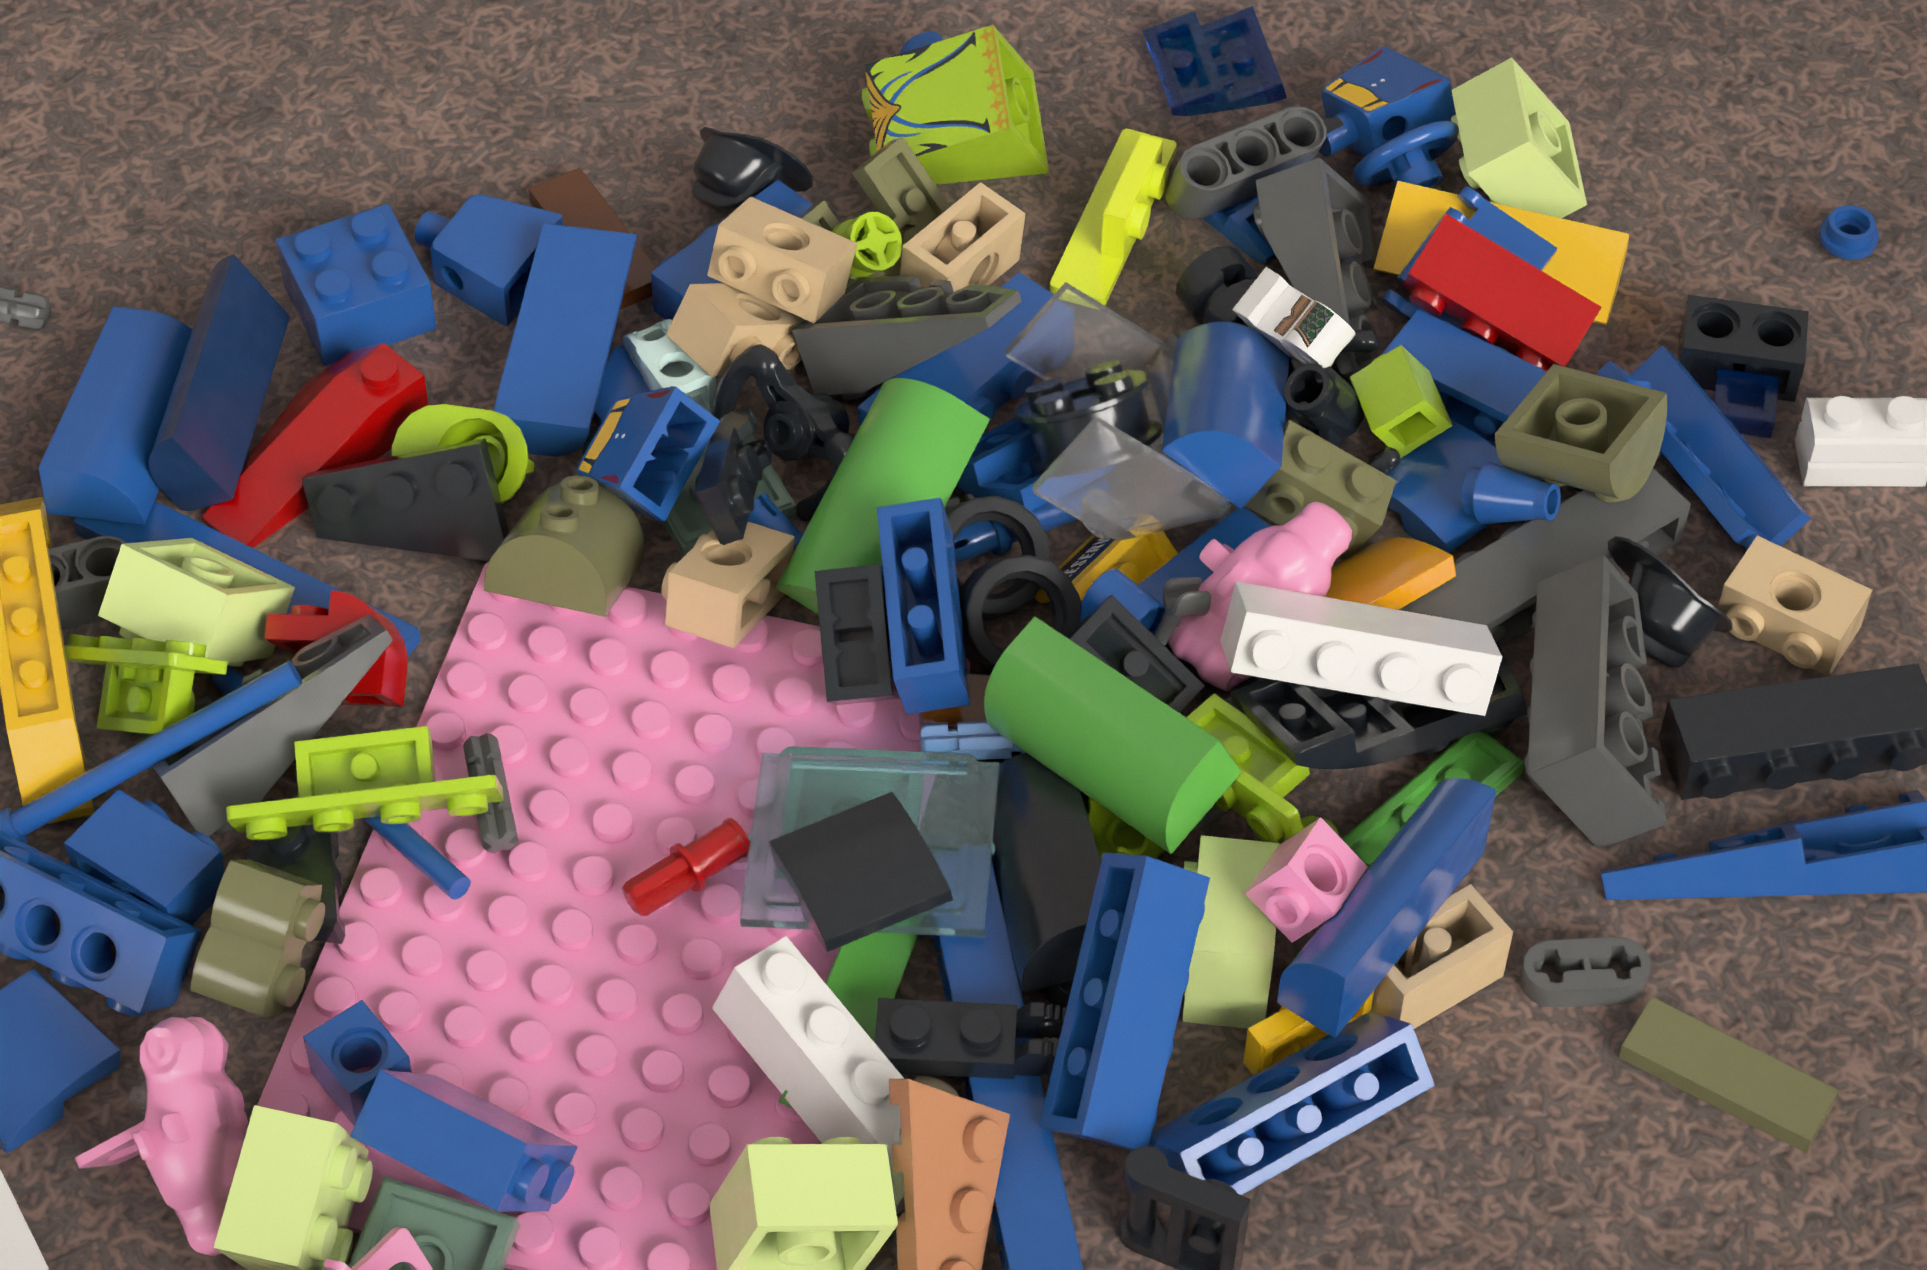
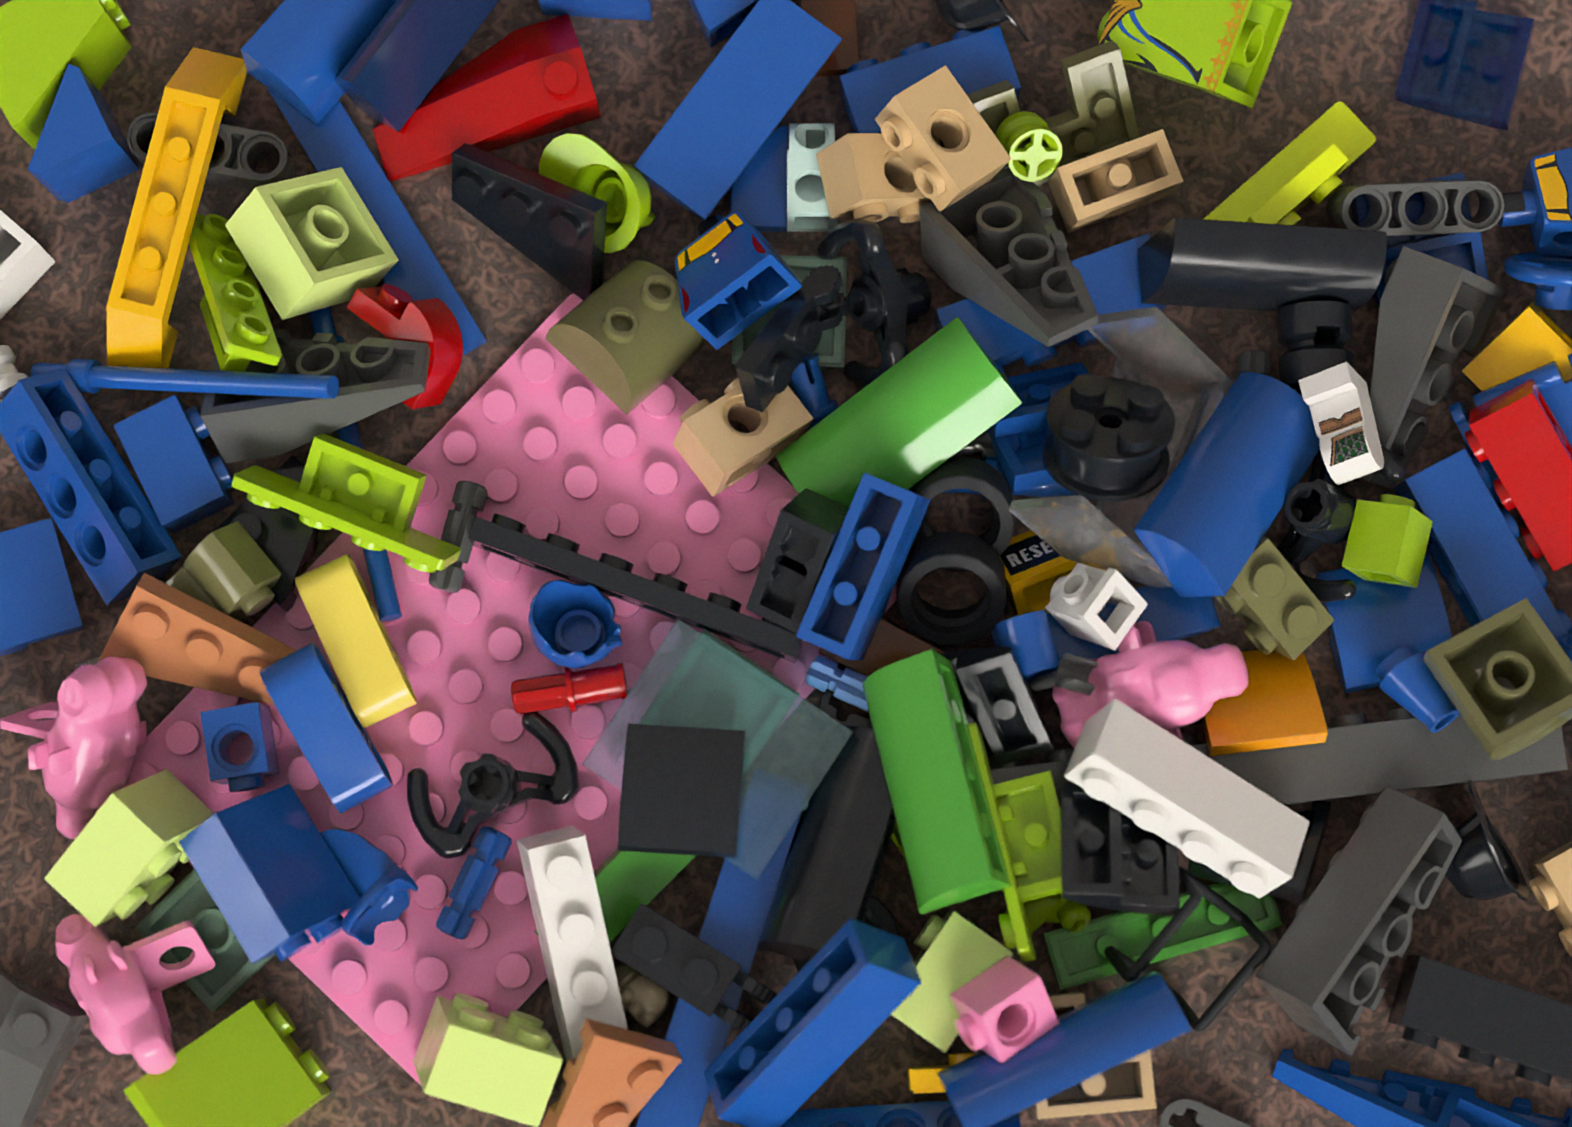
camera: 30 degrees right, 30 degrees up
(267, 986) = (192, 643): none -> nougat wing
(435, 921) = (355, 641): none -> light yellow beam
(450, 995) = (326, 727): none -> blue beam
(584, 1117) = (377, 880): none -> blue piece
(655, 986) = (493, 788): none -> black piece
(656, 803) = (573, 624): none -> blue hair
(687, 1084) = (473, 883): none -> blue axle
(690, 750) = (614, 578): none -> black plate
(1134, 240) = (1259, 265): none -> black brick
(1166, 543) = (1081, 596): none -> white brick
(1516, 755) = (1196, 889): none -> black piece

